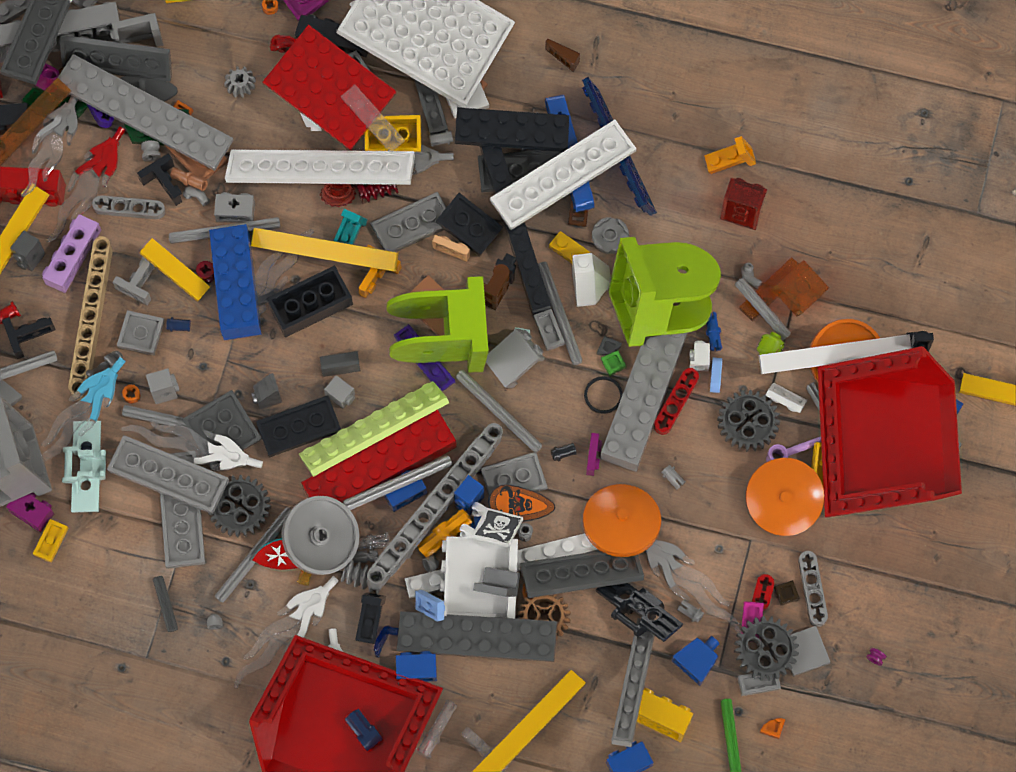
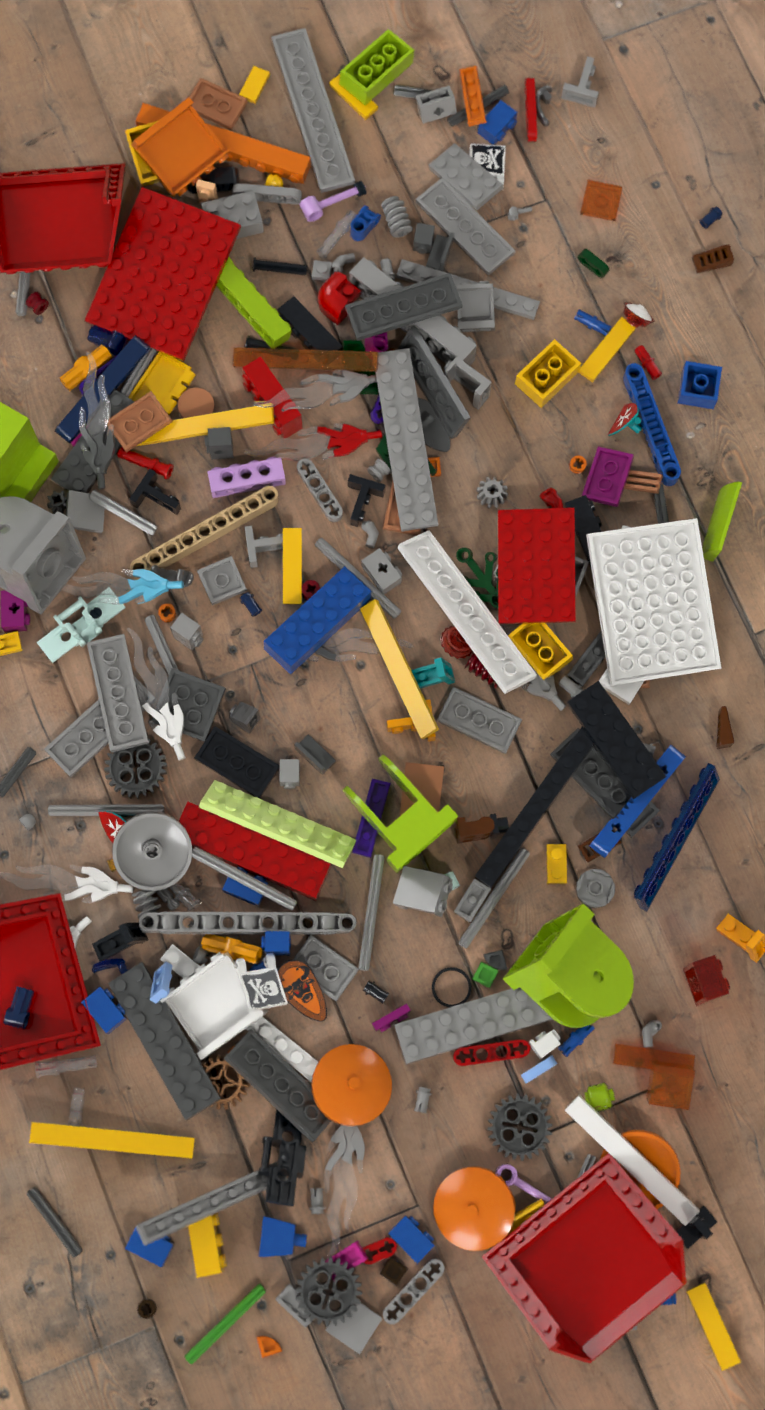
camera: 50 degrees right, 5 degrees up
(189, 179) = (378, 517): nougat pin -> none
(306, 136) = (485, 579): none -> dark green plant
(310, 301) = (346, 690): black brick -> none
(372, 118) = (536, 620): clear tile -> none
(451, 248) = (480, 759): light nougat plate -> none
(469, 224) = (512, 766): black plate -> none
(499, 582) = (217, 1025): dark grey panel -> none
(527, 536) = (279, 1008): light grey pin -> none
(563, 174) = (609, 811): white plate -> none
(590, 278) = (540, 901): white slope -> none
(762, 308) = (627, 1065): light grey axle -> none
(773, 560) = (411, 1238): none -> blue brick
(791, 400) = (564, 1144): white plate -> none
(876, 656) = (393, 1391): magenta bush -> none

